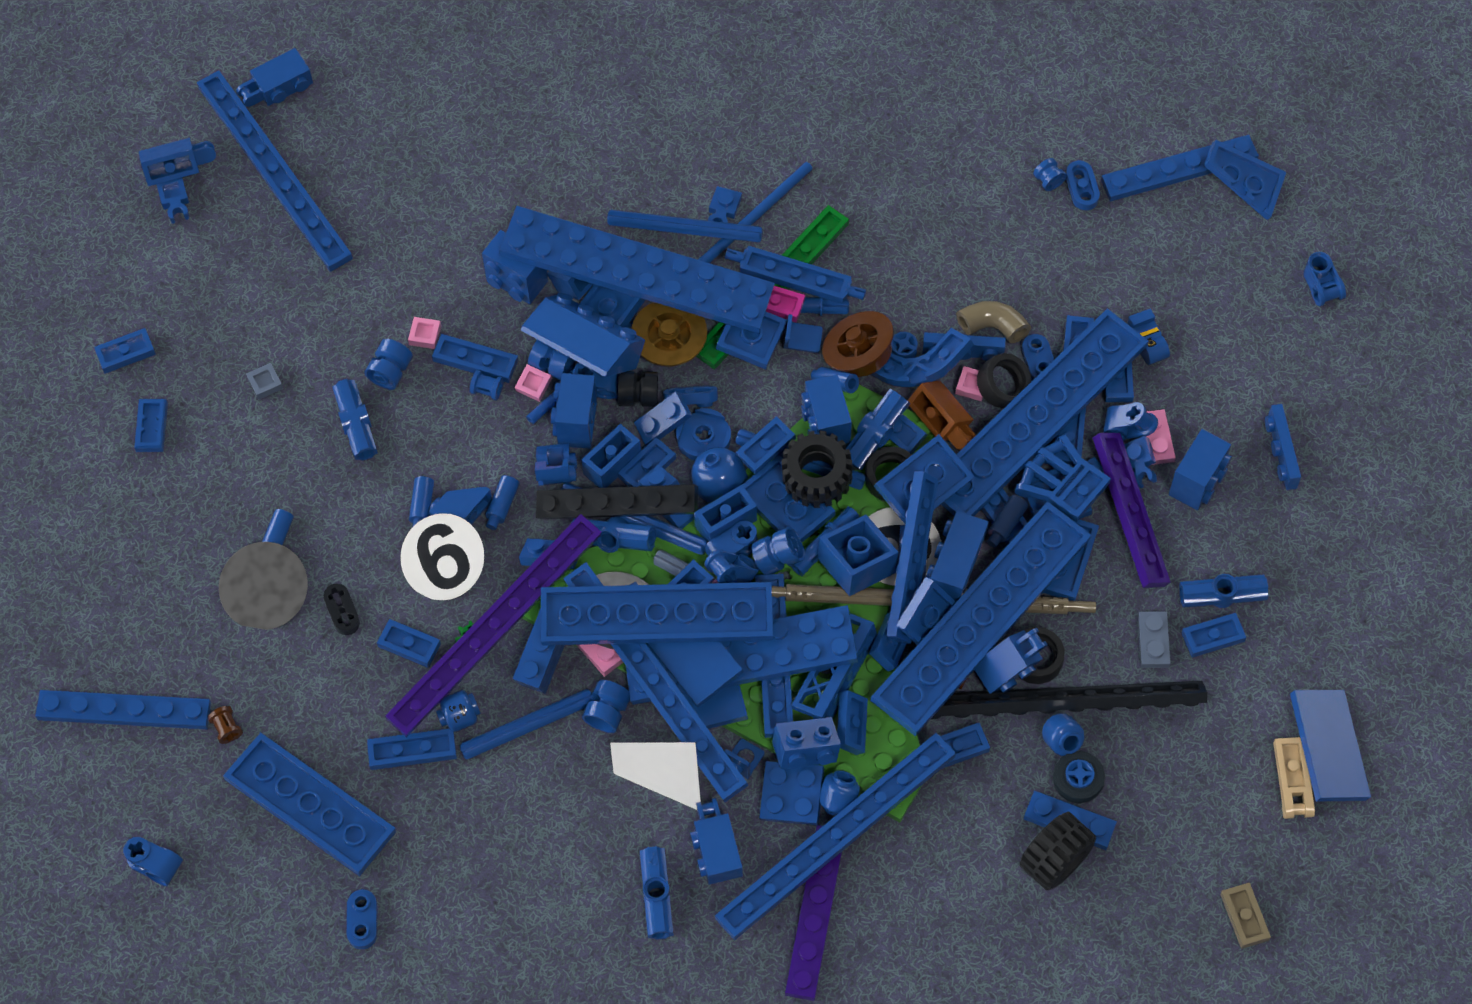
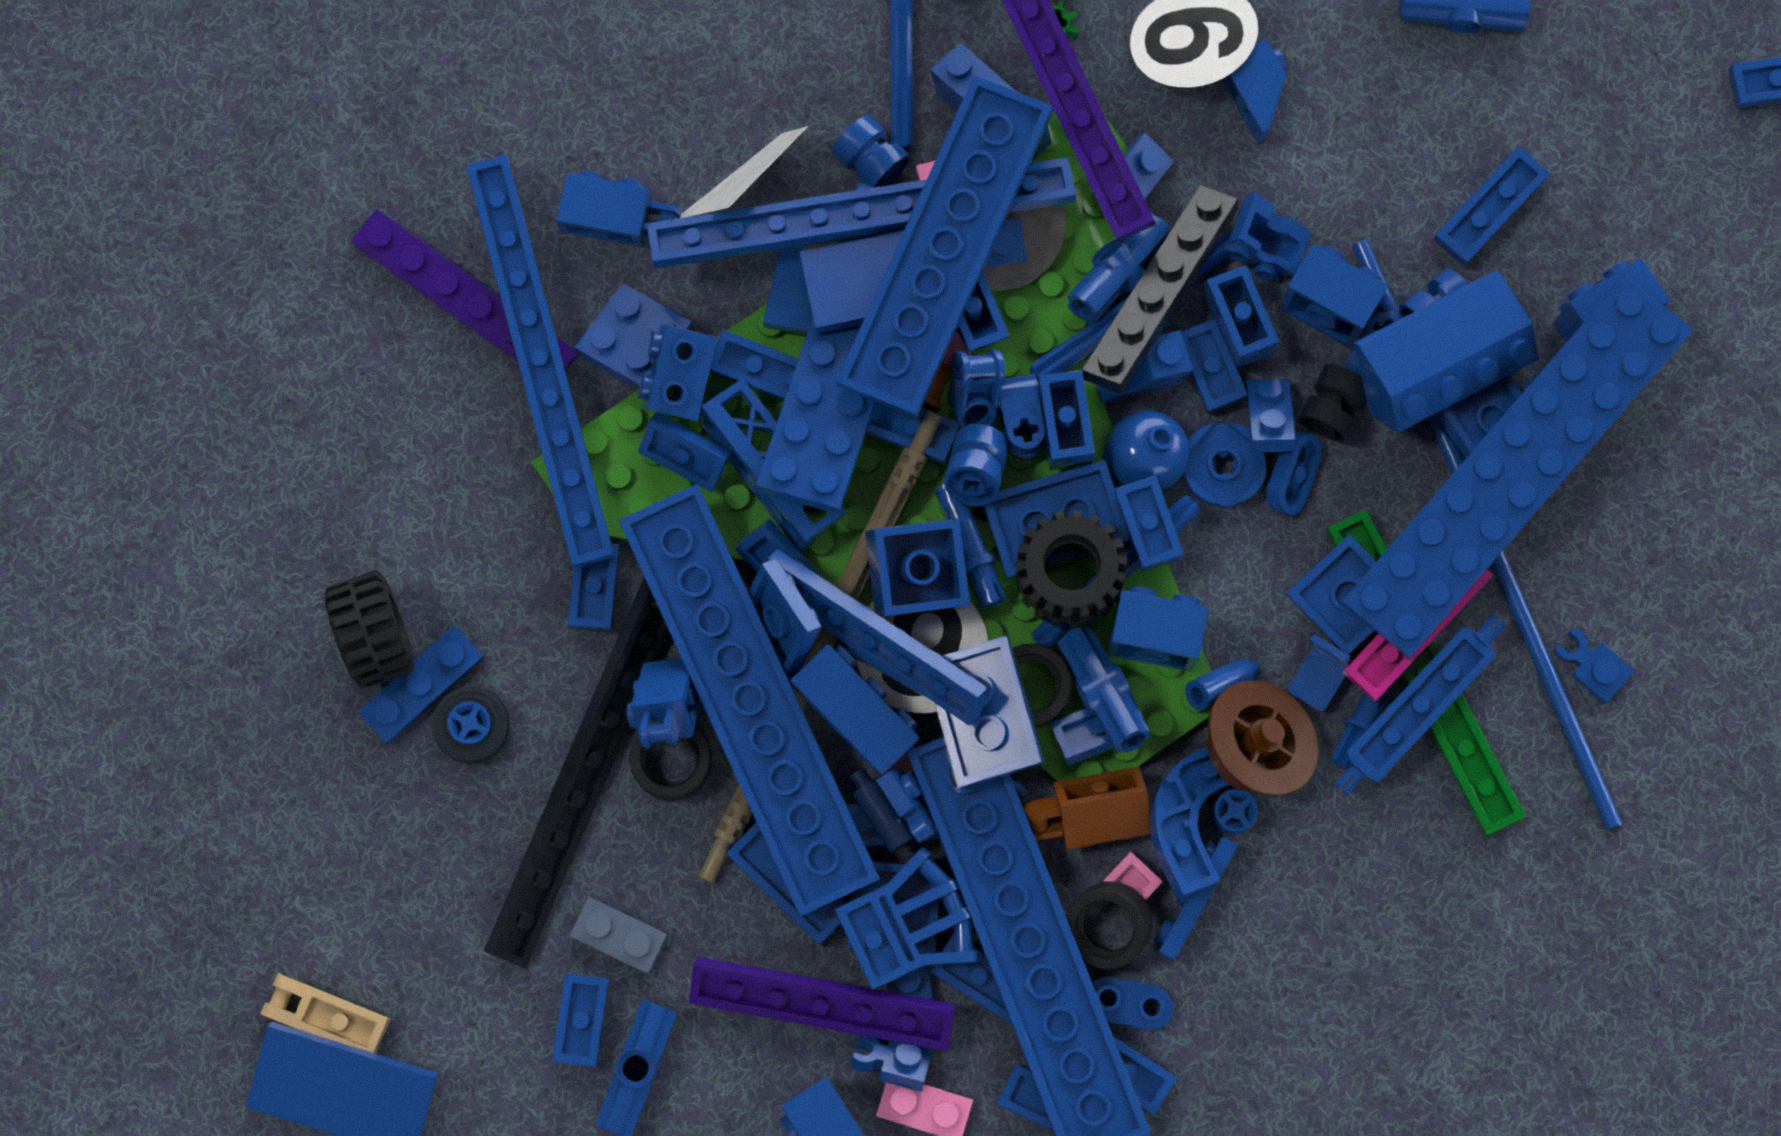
camera: 115 degrees right, 15 degrees up
(389, 363) = (1531, 82): blue wheel -> none
(421, 499) = (1295, 44): blue cylinder -> none
(424, 333) = (1564, 154): bright pink plate -> none
(486, 385) = (1439, 203): blue bush -> none
(501, 501) = (1246, 150): blue cylinder -> none
(533, 383) = (1413, 267): bright pink plate -> none
(657, 909) = (560, 98): blue piece -> none
(669, 334) = (1397, 476): pearl gold wheel -> none
(669, 562) = (1029, 329): sand blue axle -> none
(685, 225) = (1582, 592): blue axle -> none
(743, 766) = (708, 286): blue bracket -> none
(838, 791) = (600, 394): blue head -> none
(991, 510) = (904, 795): none -> blue plate
(994, 315) = (1226, 973): dark tan cylinder -> none
(1063, 734) = (535, 730): blue head -> none
(1130, 421) = (958, 1074): blue piece -> none
(1245, 915) = (174, 843): dark tan plate -> none

